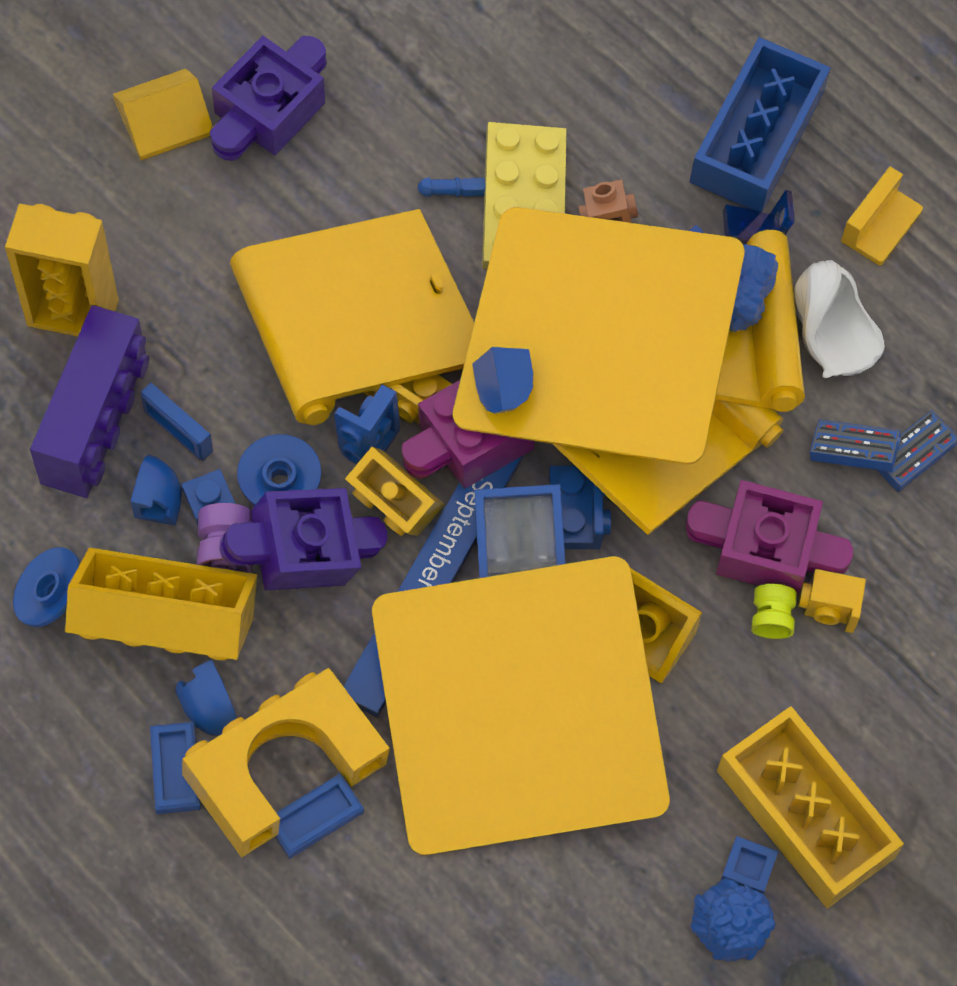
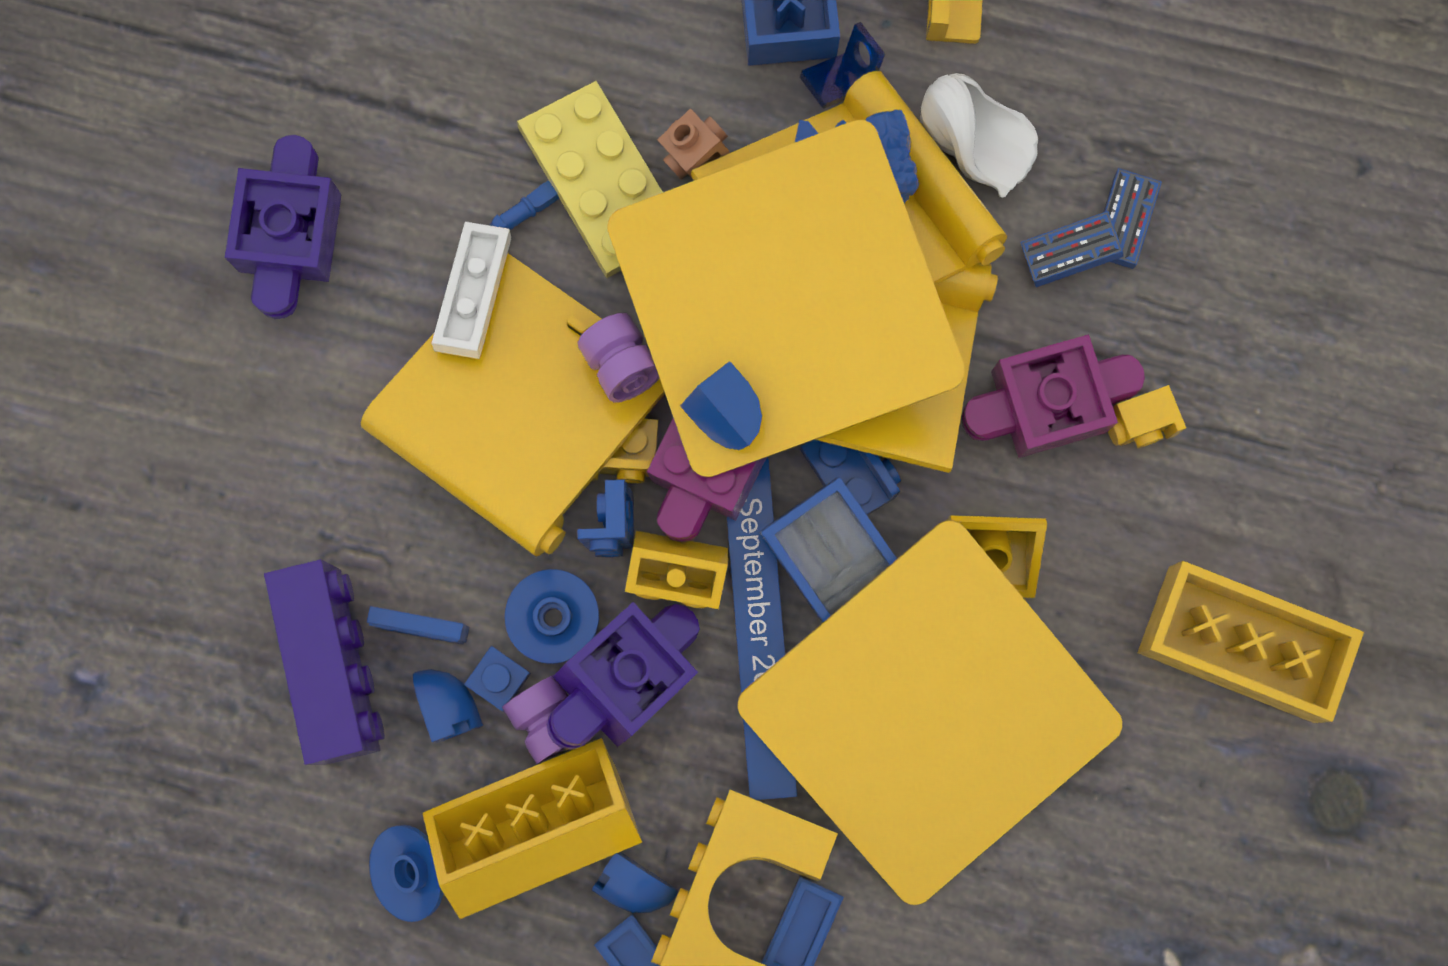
camera: 30 degrees left, 15 degrees up
(59, 267) = (206, 555): yellow brick -> none
(164, 113) = (188, 302): yellow slope -> none
(374, 214) = (471, 290): none -> white plate
(450, 313) = (617, 353): none -> medium lavender wheel
(732, 920) = (1248, 796): blue hair -> none
(750, 864) = (1224, 729): blue plate -> none
(774, 611) = (1098, 465): neon yellow wheel -> none

